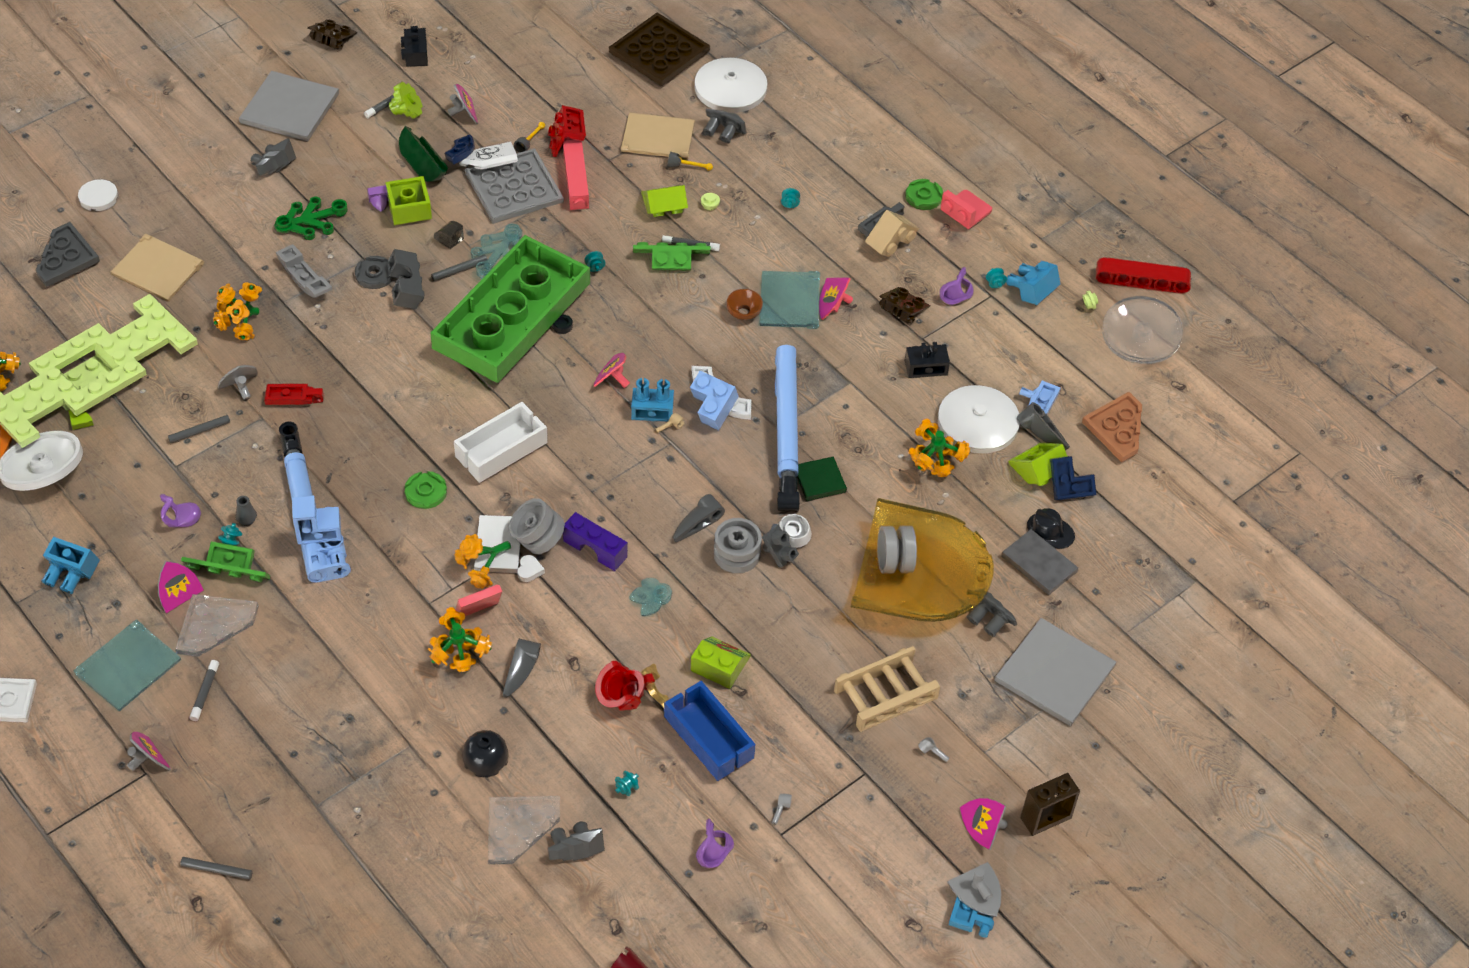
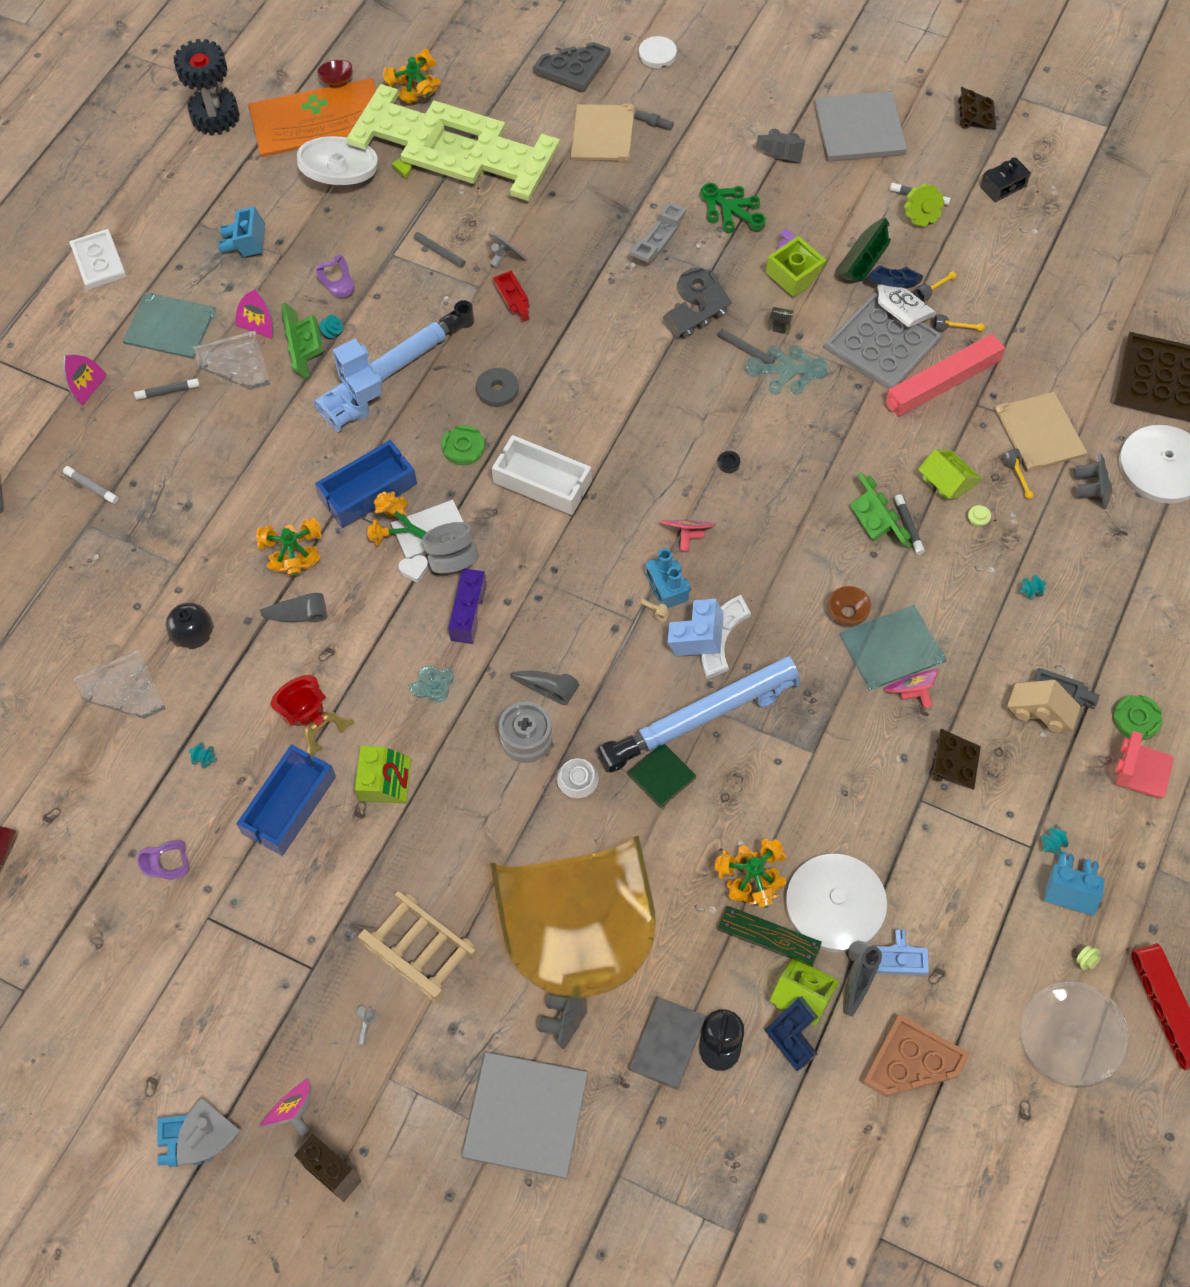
camera: 70 degrees right, 10 degrees up
(174, 227) = (654, 119): none -> dark grey bar
(237, 309) = (586, 200): light orange plant -> none
(245, 511) = (361, 325): dark grey cone -> none
(273, 787) = (90, 485): none -> light grey bar
(382, 434) = (494, 377): none -> dark grey tile
(427, 566) = (353, 488): none -> blue piece
(465, 103) = (957, 250): shield -> none
(479, 600) = (342, 540): coral tile -> none
(486, 139) = (925, 291): none -> dark grey hinge
(511, 305) = (708, 407): bright green plate -> none
(567, 123) = (981, 345): red bracket -> none
(579, 845) = (119, 749): dark grey connector -> none
(595, 261) = (823, 451): teal wheel -> none
(777, 544) = (543, 770): dark grey hips -> none
(783, 801) = (242, 903): light grey hand -> none
(896, 549) = (584, 882): light grey wheel -> none
(927, 360) = (883, 815): black brick -> none
(952, 293) = (999, 801): medium lavender piece -> none
(987, 466) = (770, 936): none -> dark green tile

